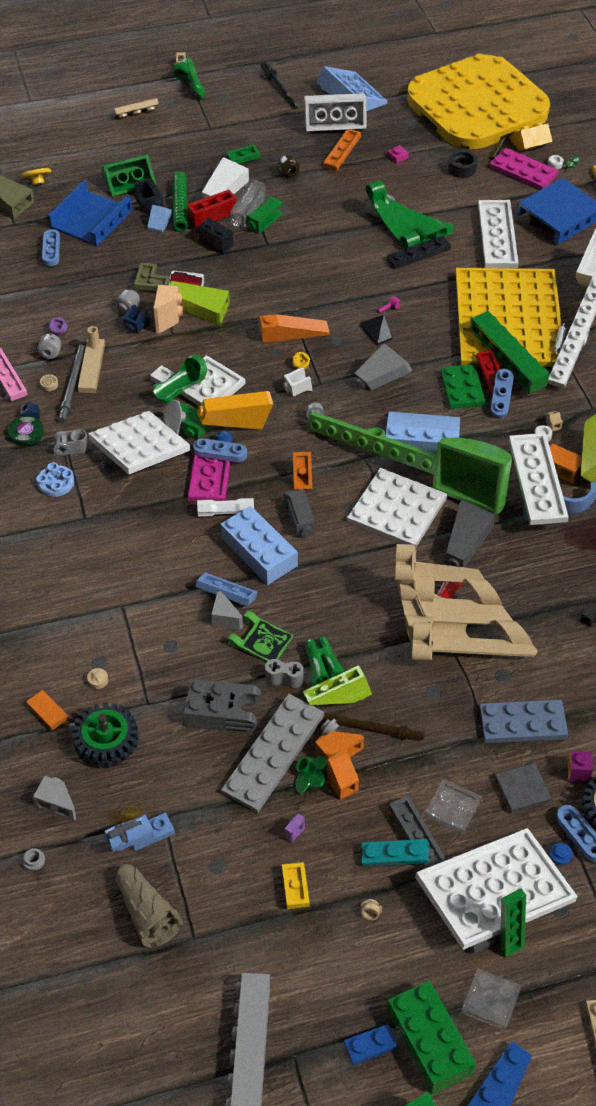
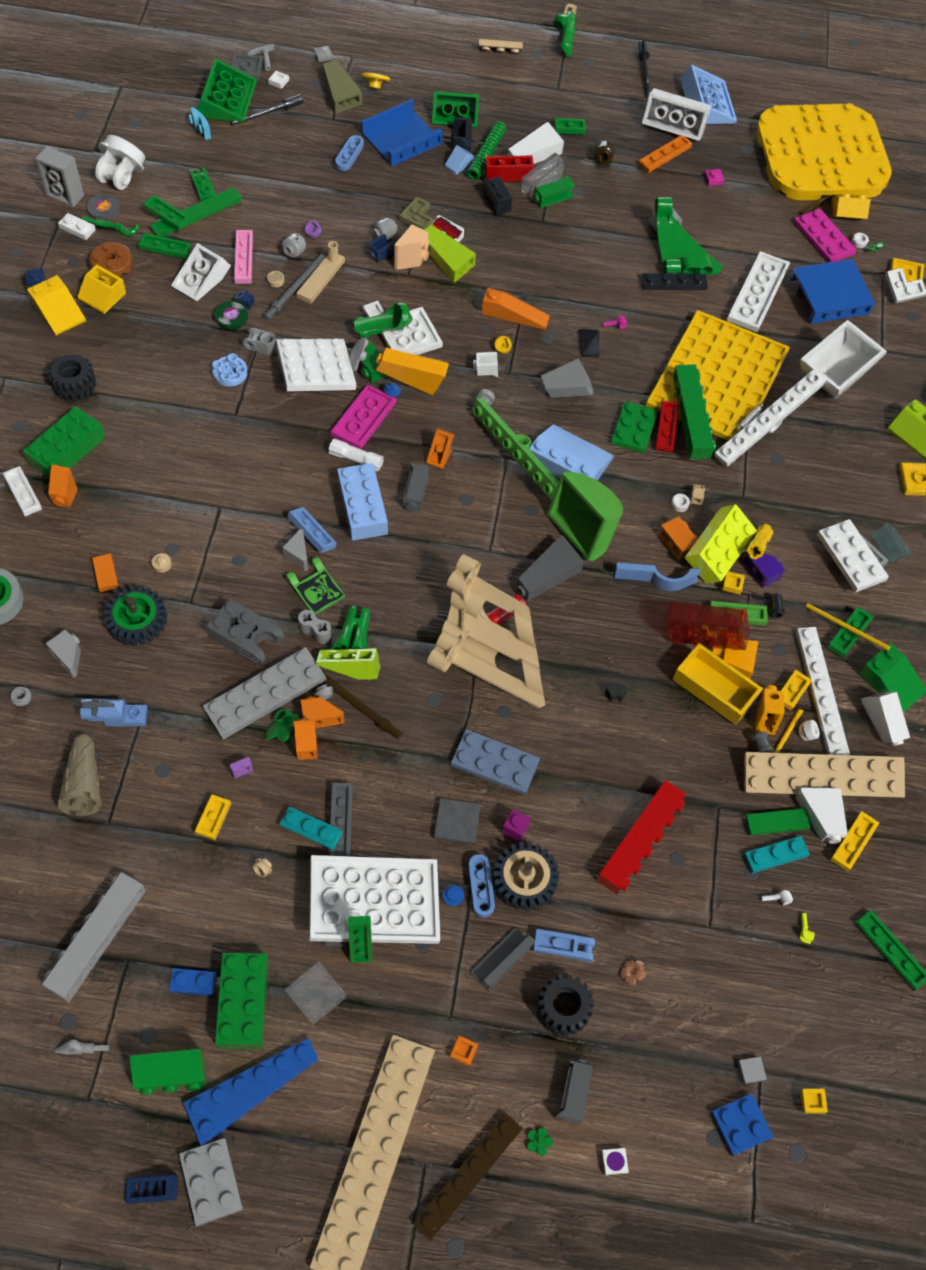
camera: 20 degrees right, 10 degrees up
(130, 813) = (117, 693): clear yellow plate -> none
(220, 450) = (372, 395): medium blue plate -> none
(397, 508) = (505, 518): white plate -> none
(453, 806) = (386, 810): clear plate -> none
(462, 170) = (770, 201): black tyre -> none
(499, 398) = (663, 455): medium blue plate -> none
(538, 479) = (641, 544): white plate -> none

